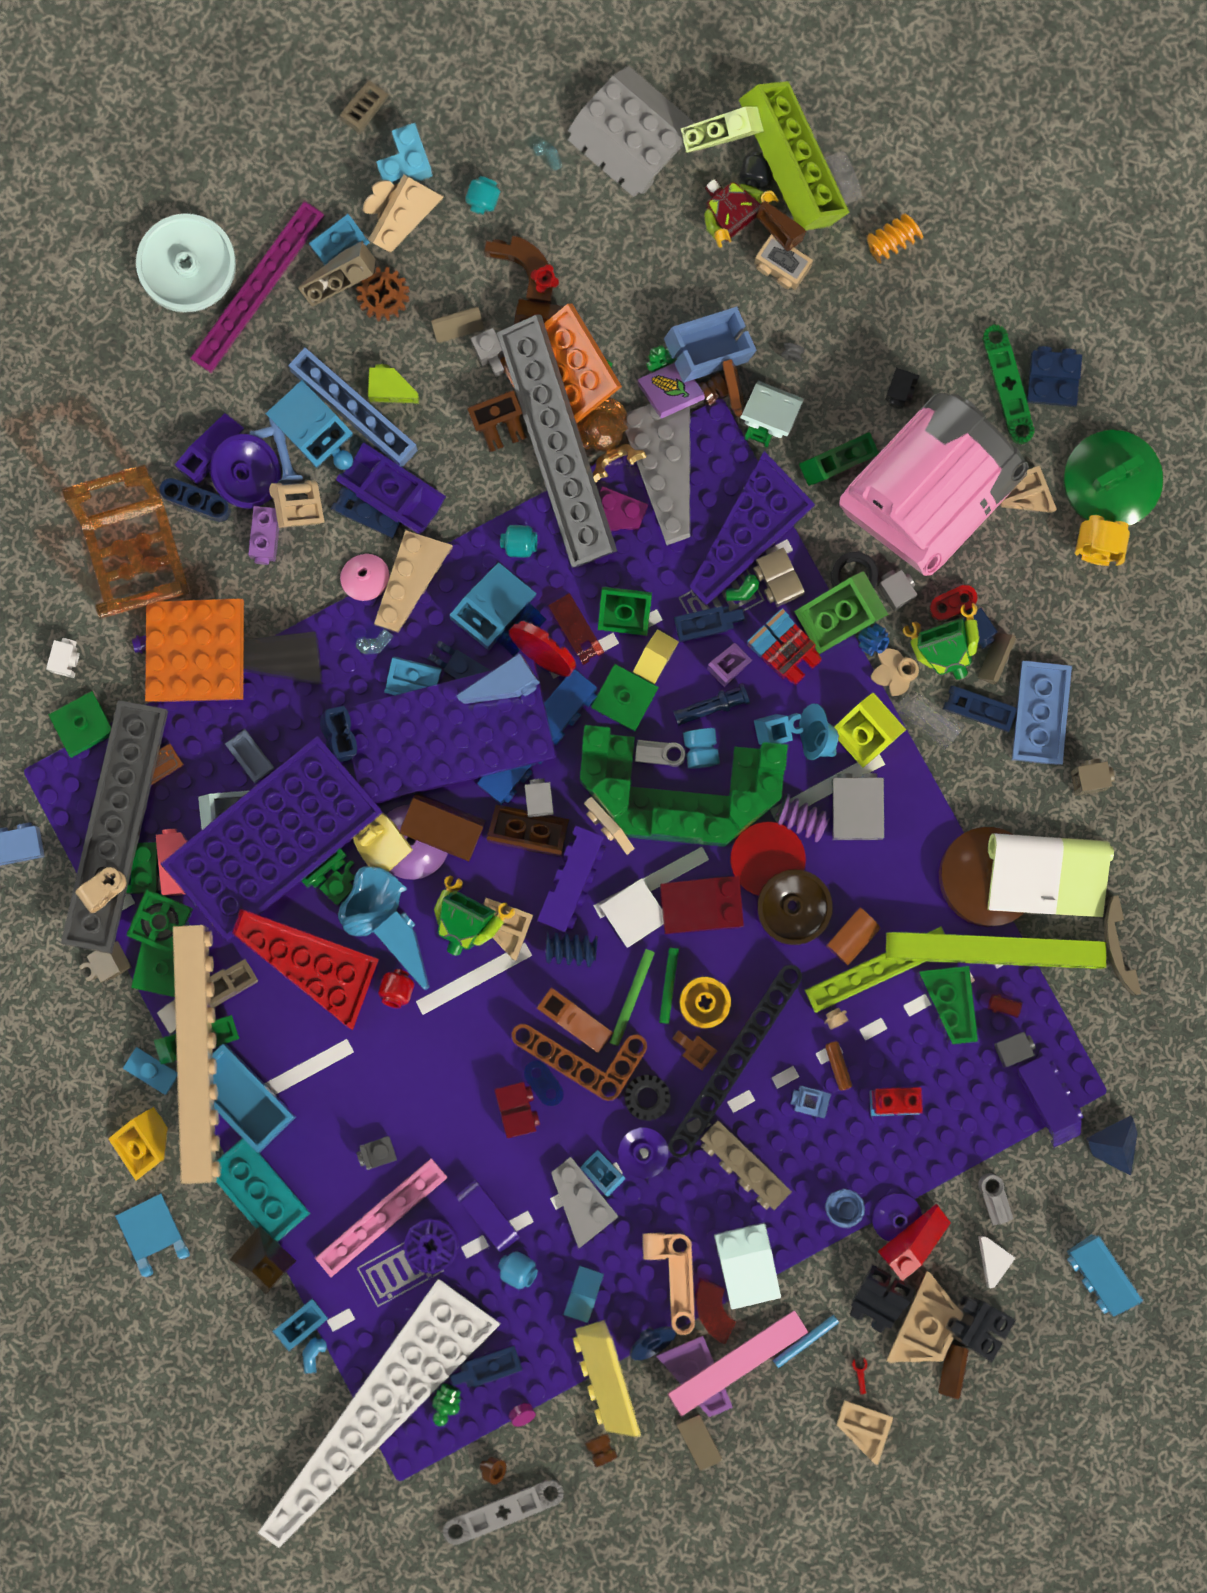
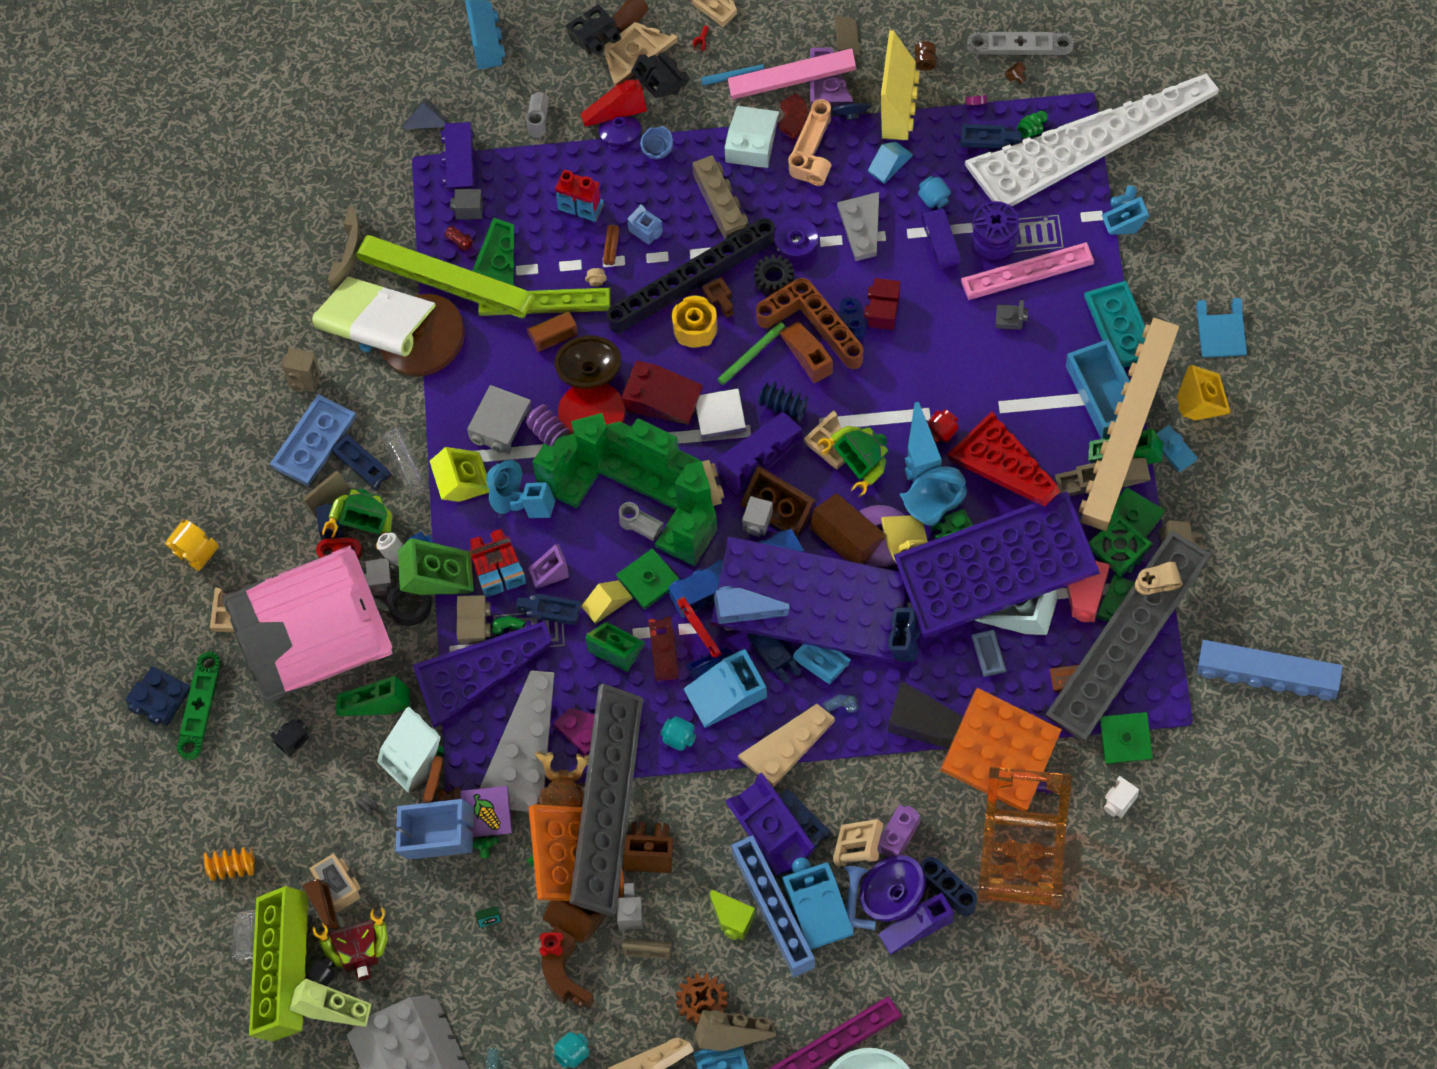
camera: 150 degrees left, 20 degrees down
(262, 1260) = (1136, 271): dark brown slope -> none
(367, 586) = (824, 777): bright pink dish -> none
(602, 1173) = (834, 232): dark azure slope -> none
(621, 289) = (488, 916): none -> dark green tile
(669, 985) = (706, 367): green bar -> none
(701, 748) = (604, 511): dark azure wheel -> none
(723, 701) = (566, 546): dark blue pin -> none
(891, 672) = (418, 516): tan plate -> none
(899, 622) = (389, 545): none -> white brick
(994, 1260) = (560, 72): white slope -> none
(1113, 477) = (155, 595): green bracket -> none

